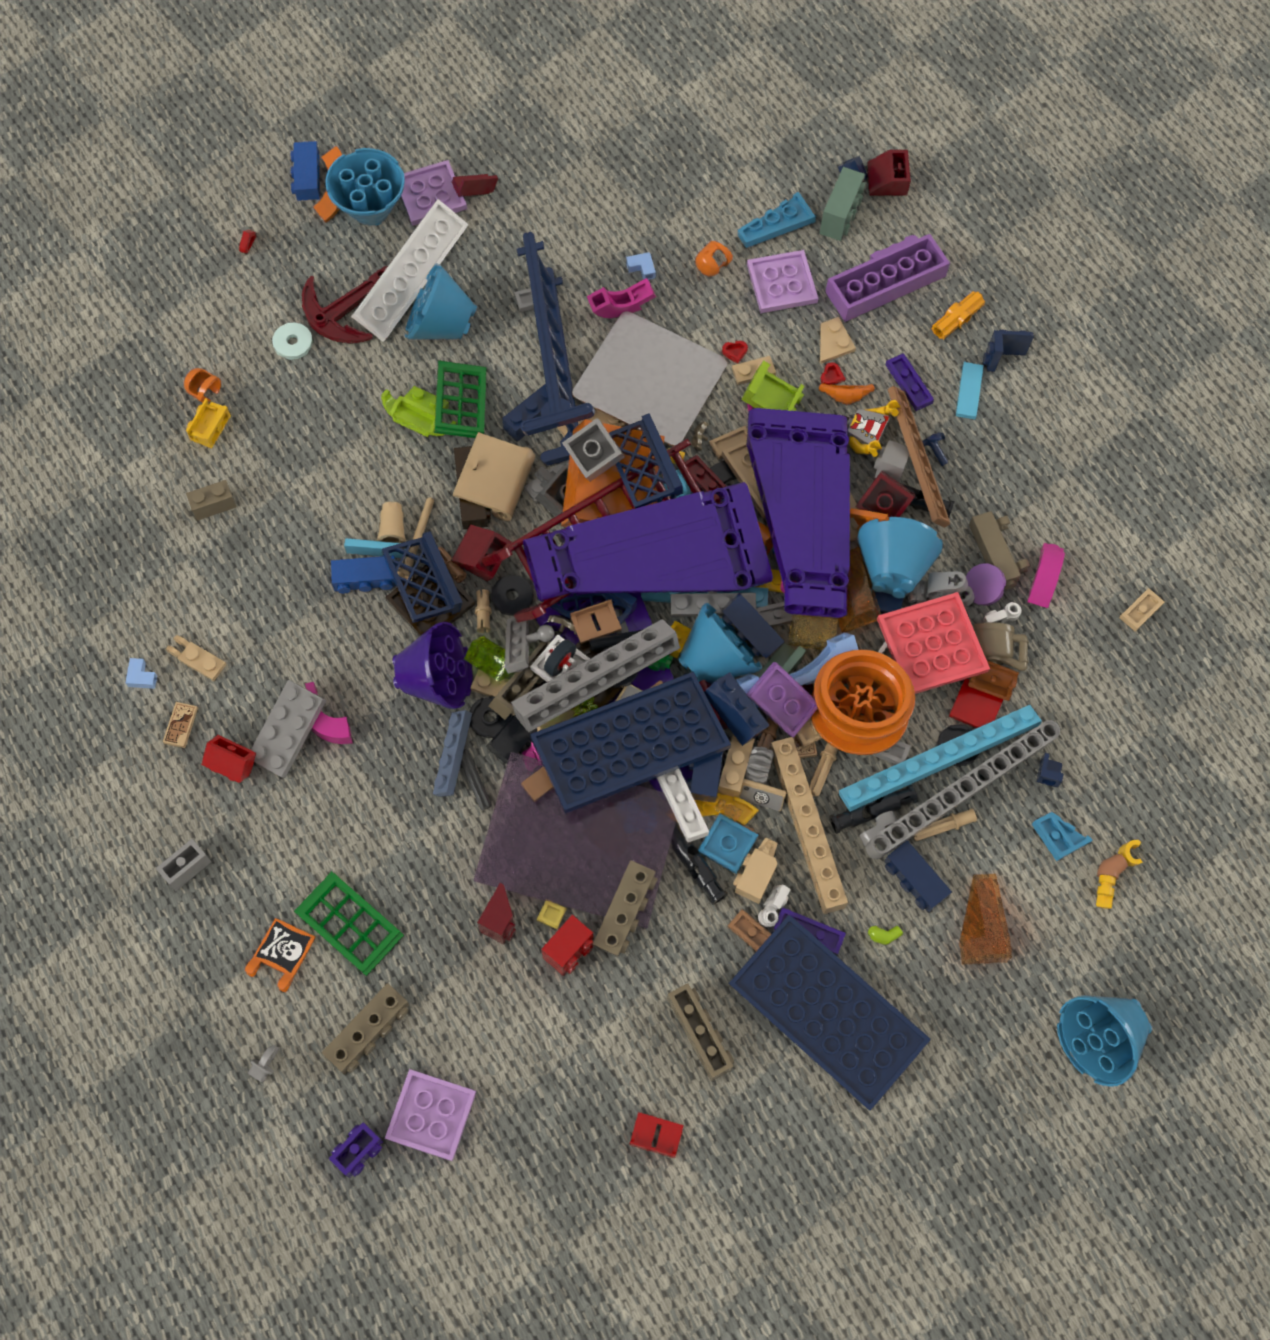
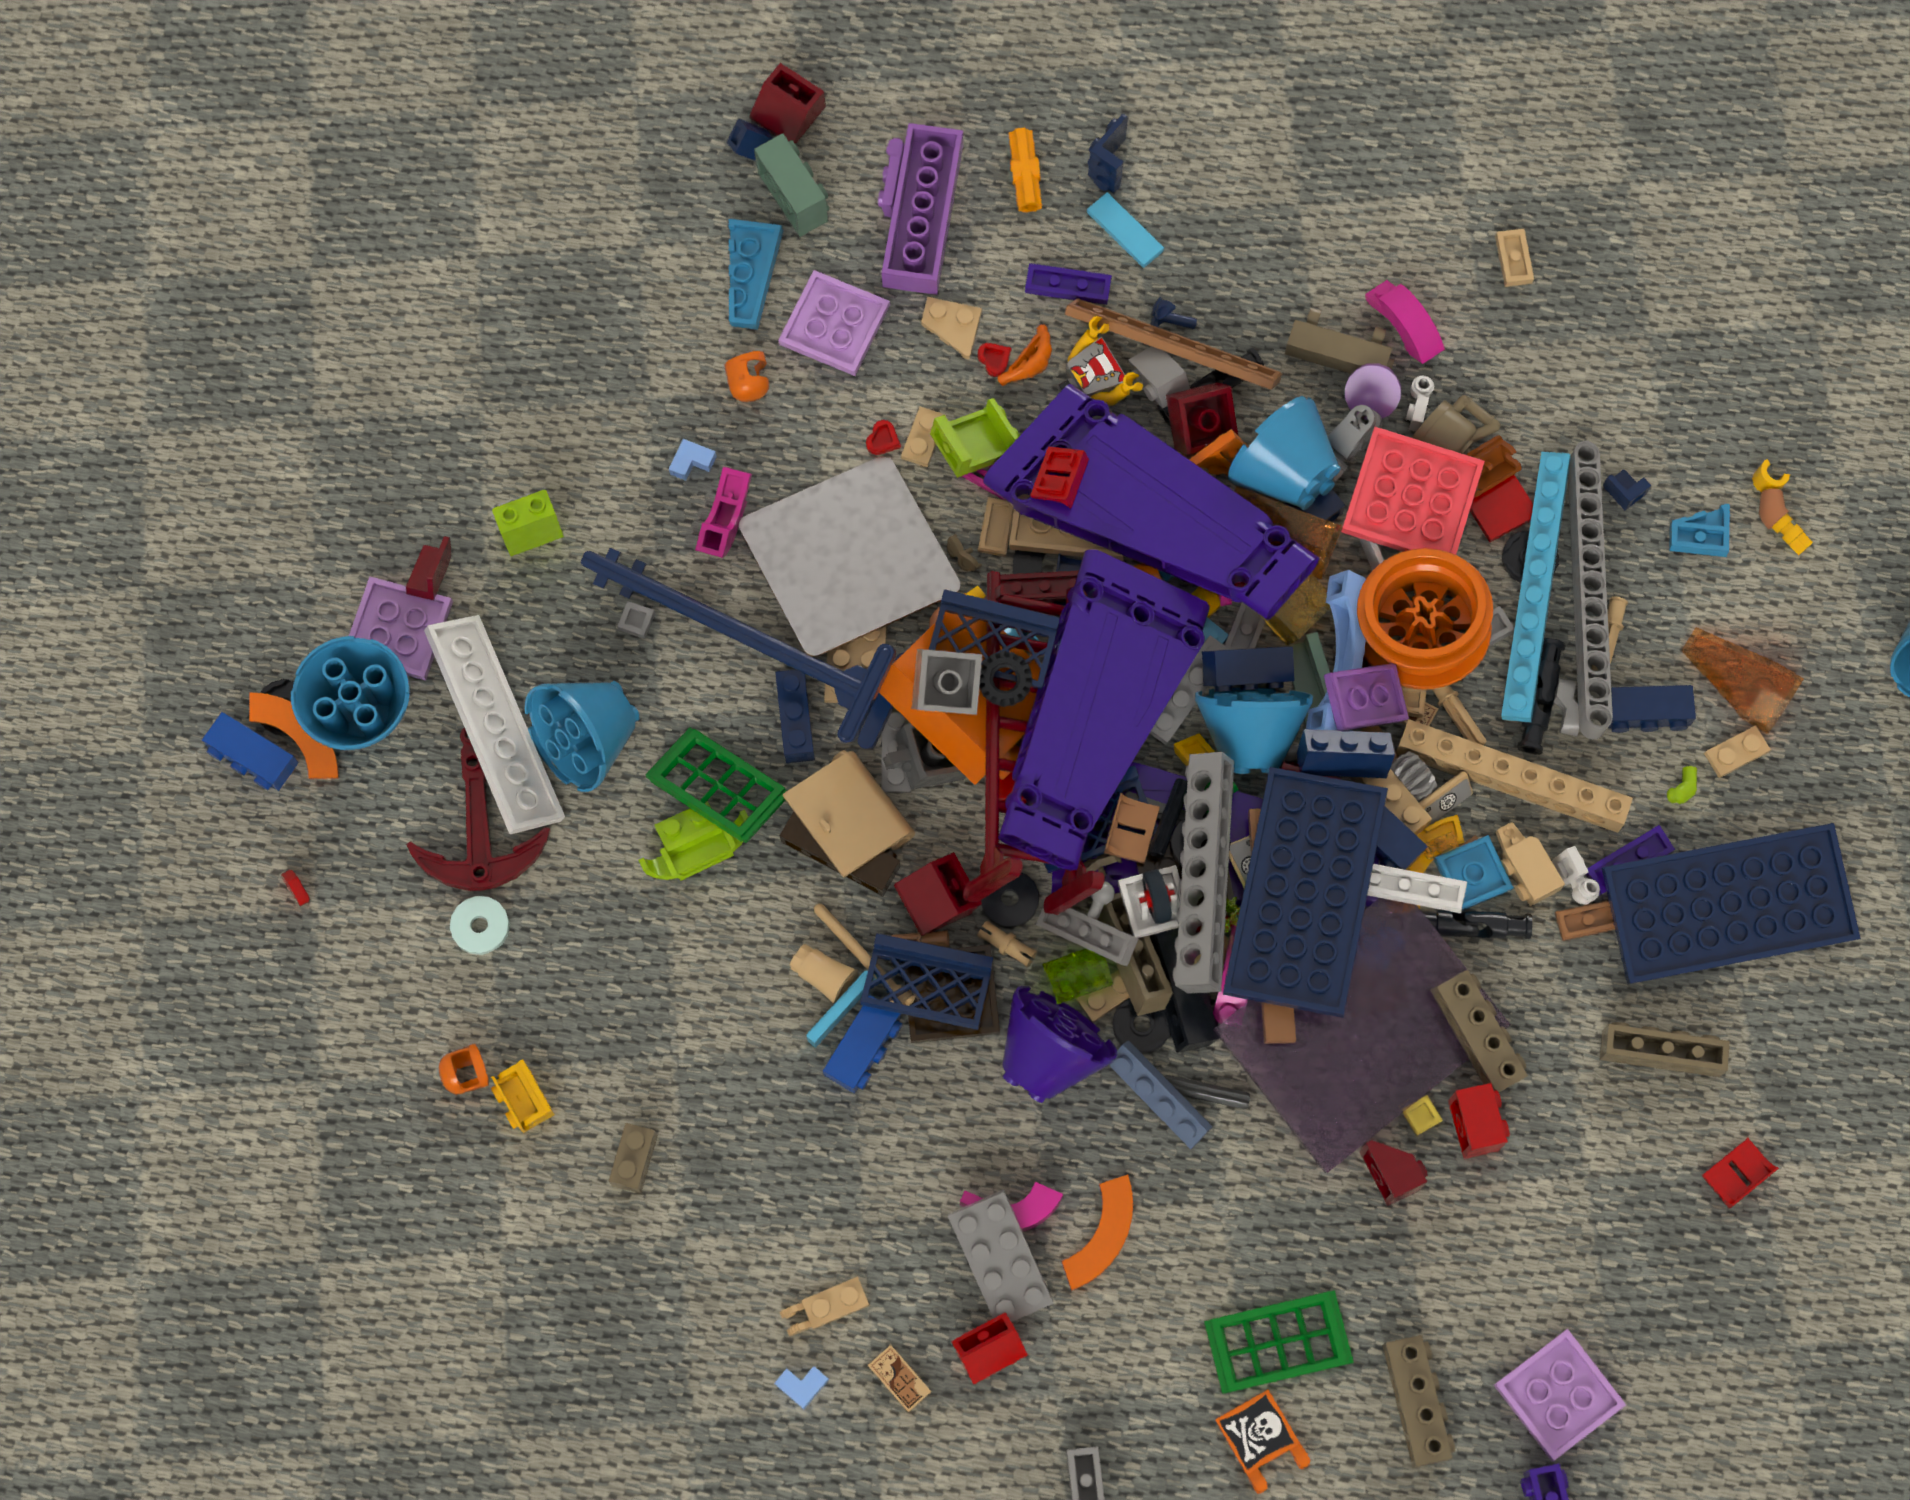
camera: 50 degrees left, 5 degrees up
(345, 783) = (1109, 1236): none -> orange tile
(533, 207) = (527, 522): none -> lime panel
(617, 470) = (1018, 692): none -> black tyre
(775, 450) = (1060, 488): none -> red piece
(934, 952) = (1737, 751): none -> tan plate

